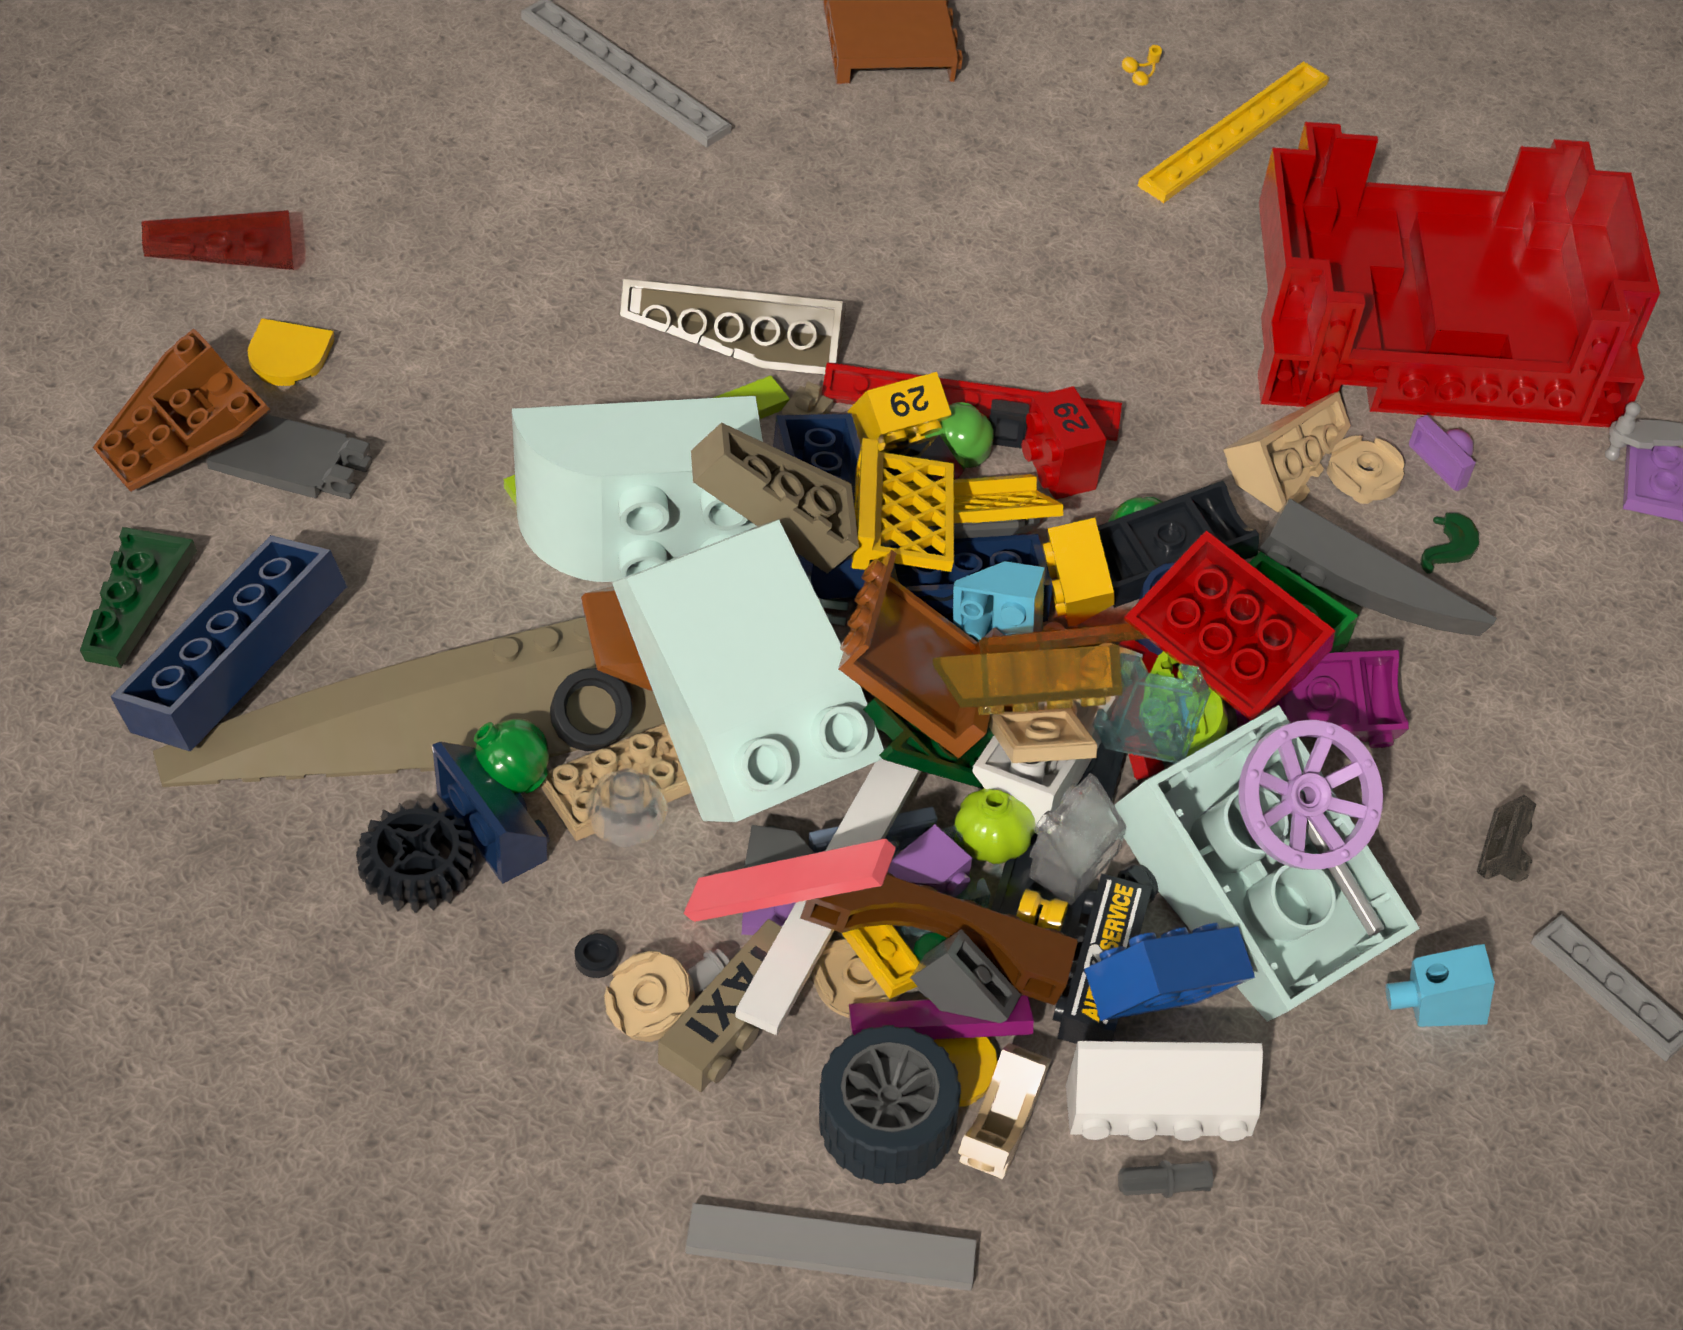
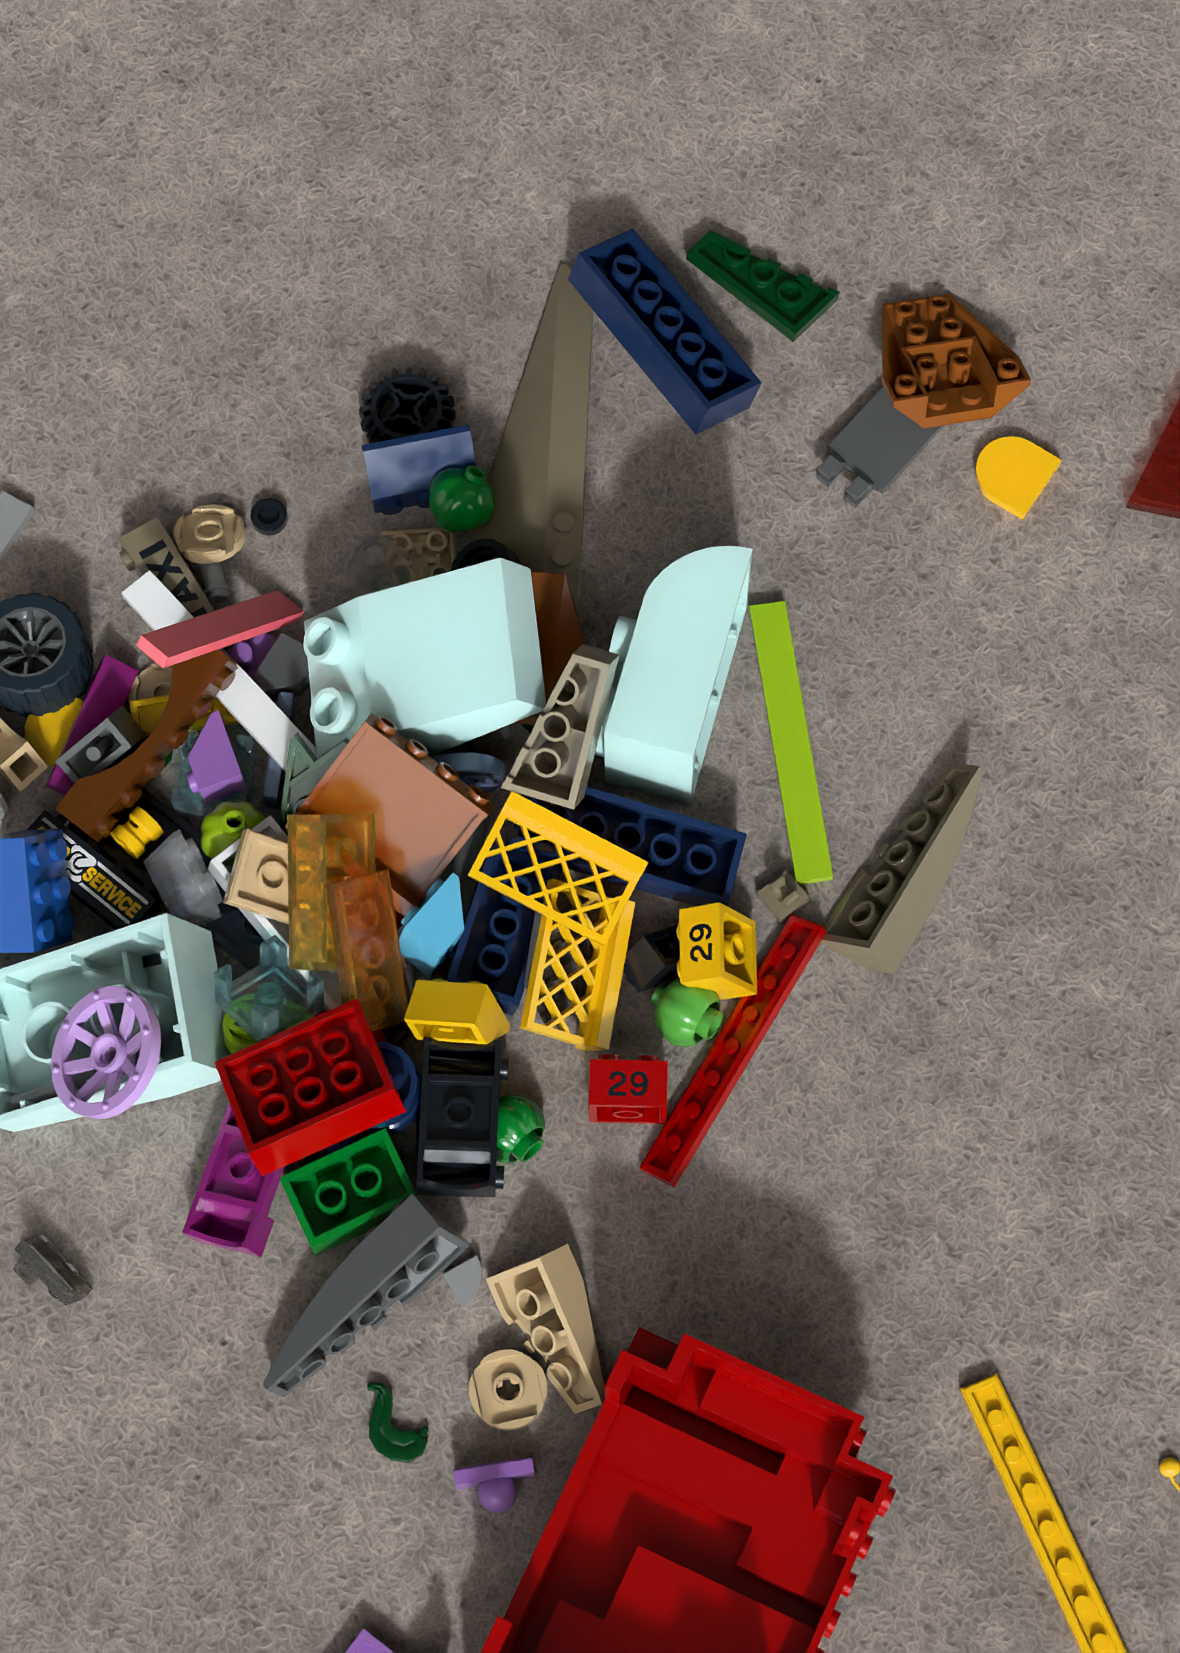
camera: 120 degrees right, 20 degrees up
(1008, 422) = (692, 1067): black slope -> none

